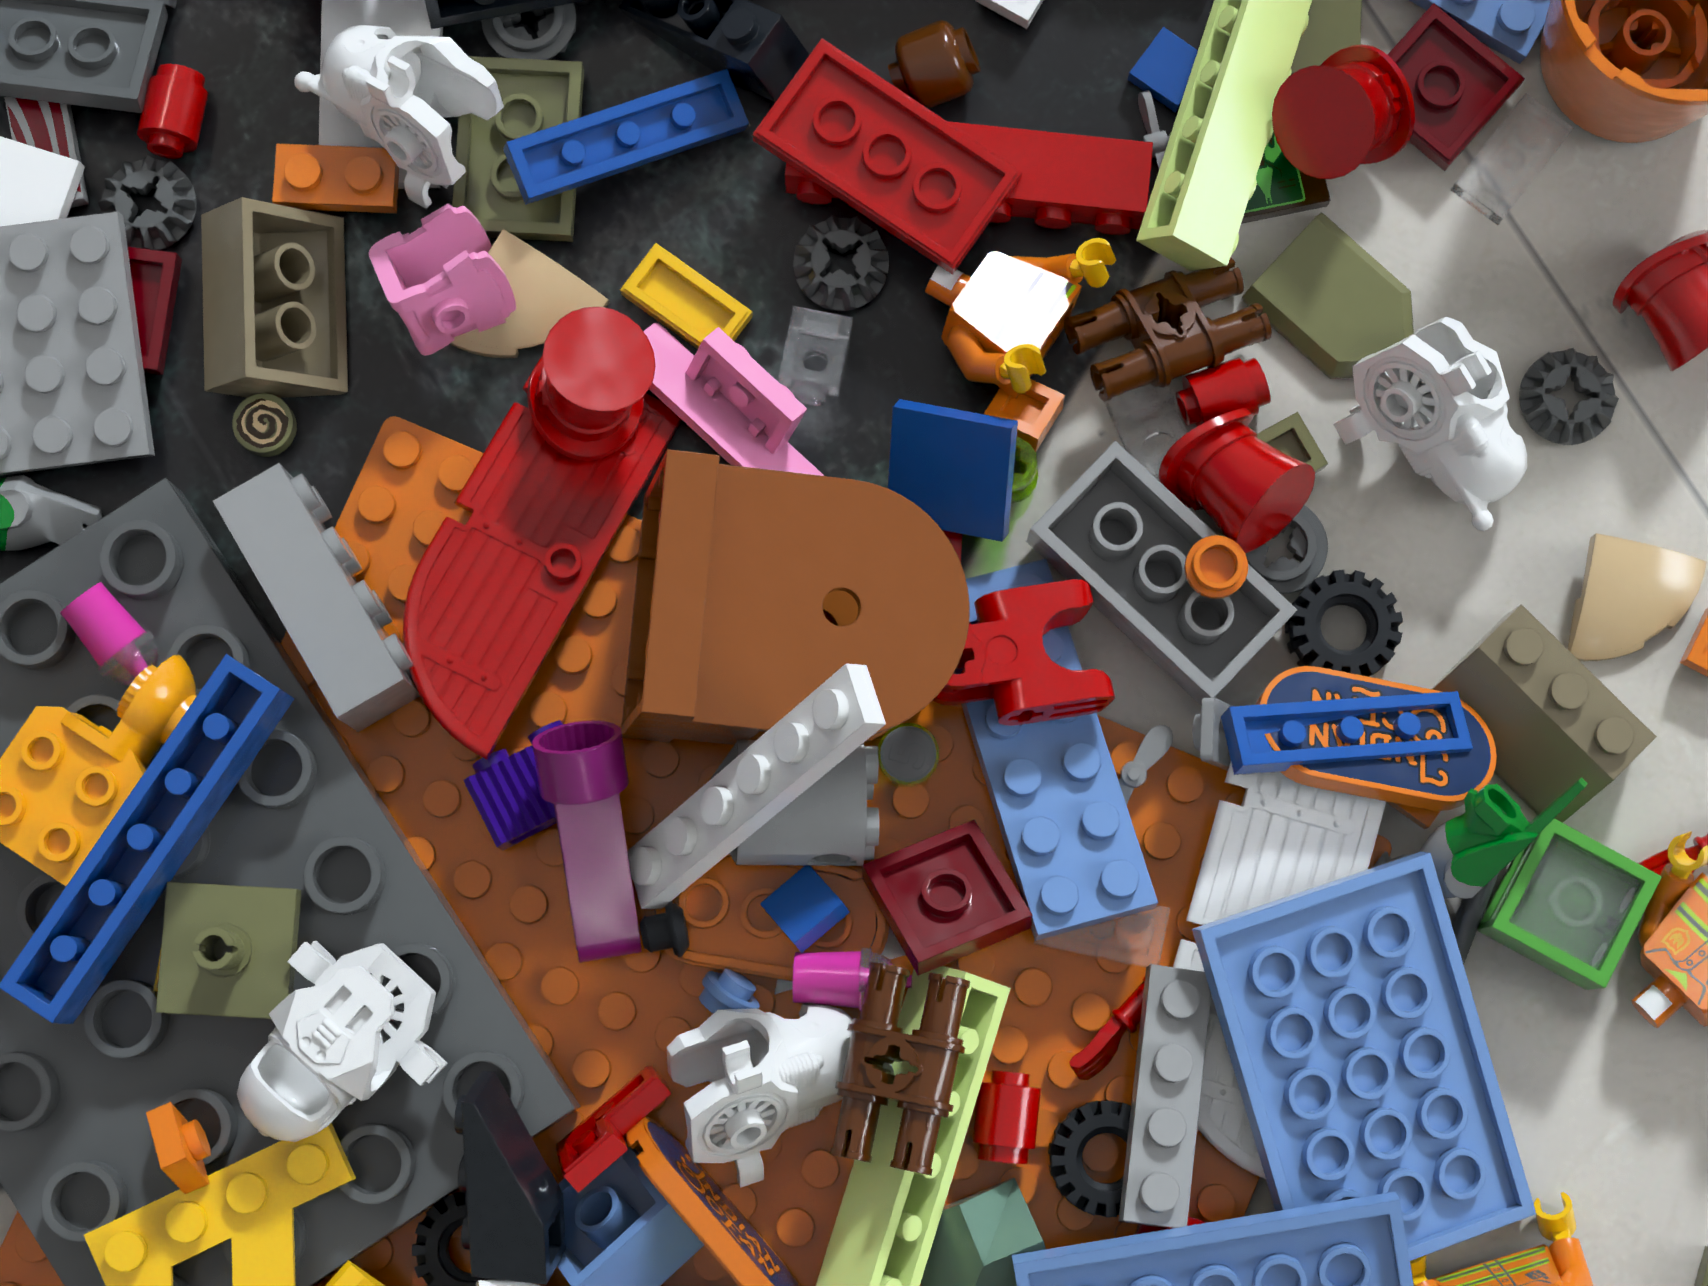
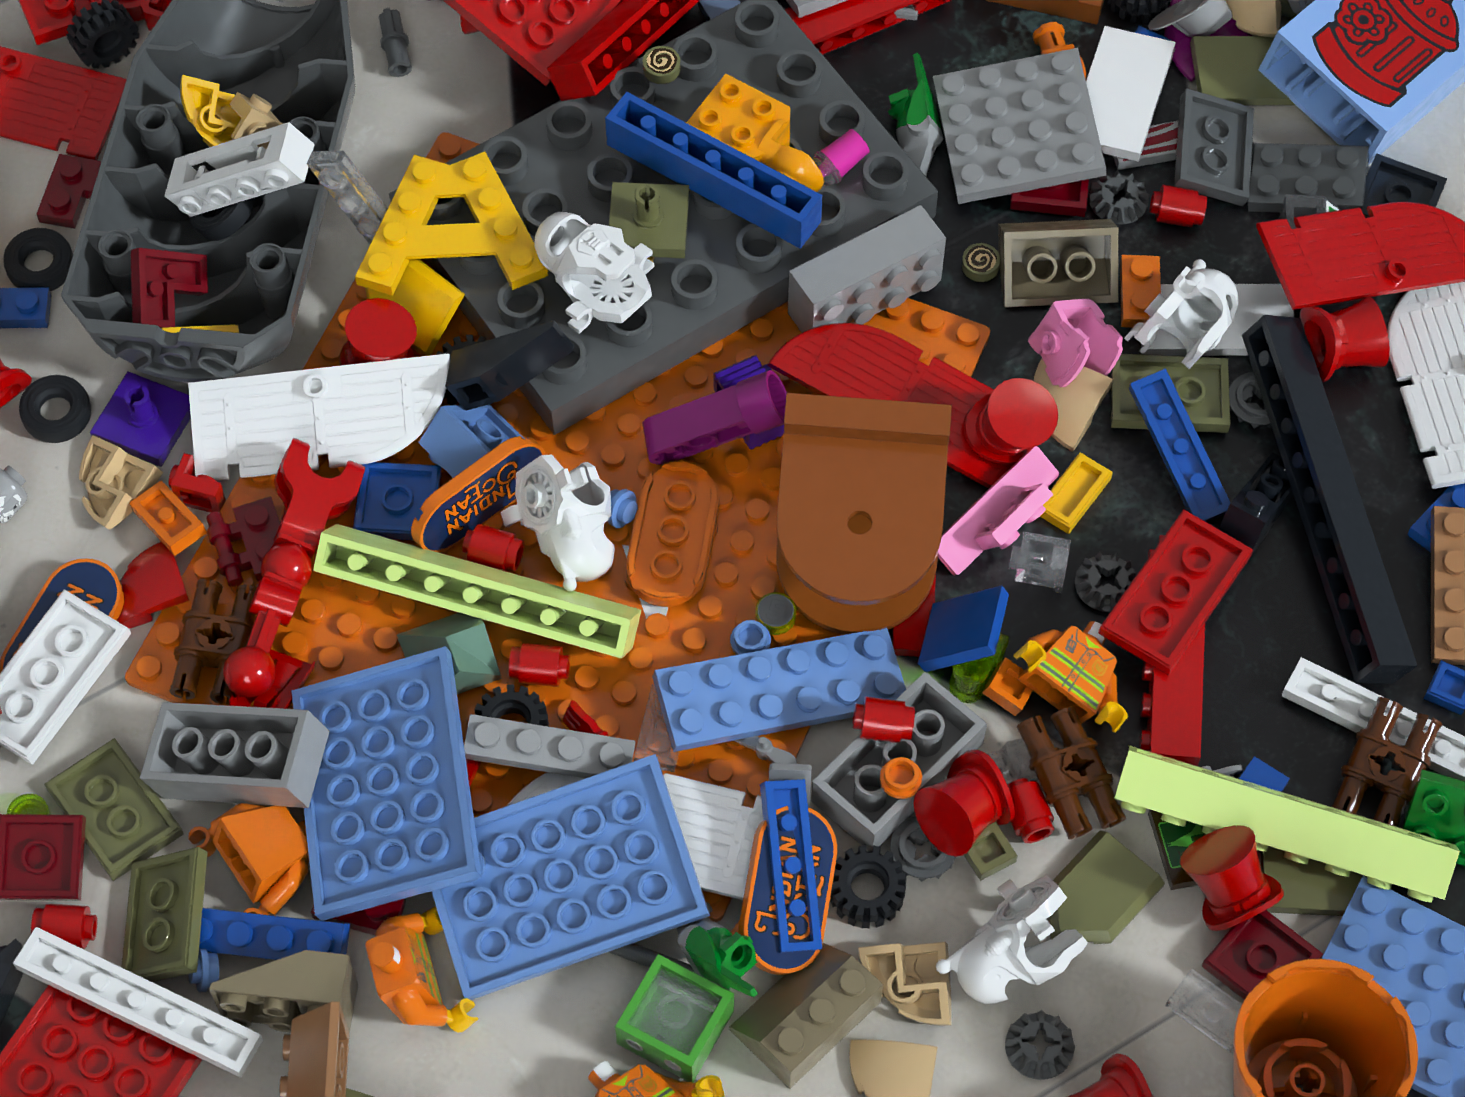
camera: 90 degrees right, 20 degrees down
(179, 1147) = (532, 190): orange plate -> none
(600, 1138) = (531, 427): red tile -> none
(665, 931) = (661, 469): black piece -> none
(756, 785) = (745, 478): white plate -> none
(802, 1197) = (493, 548): none -> red brick
(805, 908) = (674, 543): blue tile -> none
(823, 823) = (740, 537): light grey cylinder -> none
(834, 977) = (629, 564): dark pink piece -> none
(920, 1094) = (570, 577): reddish brown pin -> none
(934, 64) = (1247, 632): reddish brown head -> none
(946, 897) = (681, 623): dark red plate -> none
(955, 793) = (749, 637): none -> medium blue plate
(1009, 663) = (837, 656): red piece -> none
(1127, 588) = (884, 719): none -> red brick
(1477, 571) = (912, 979): none -> tan brick

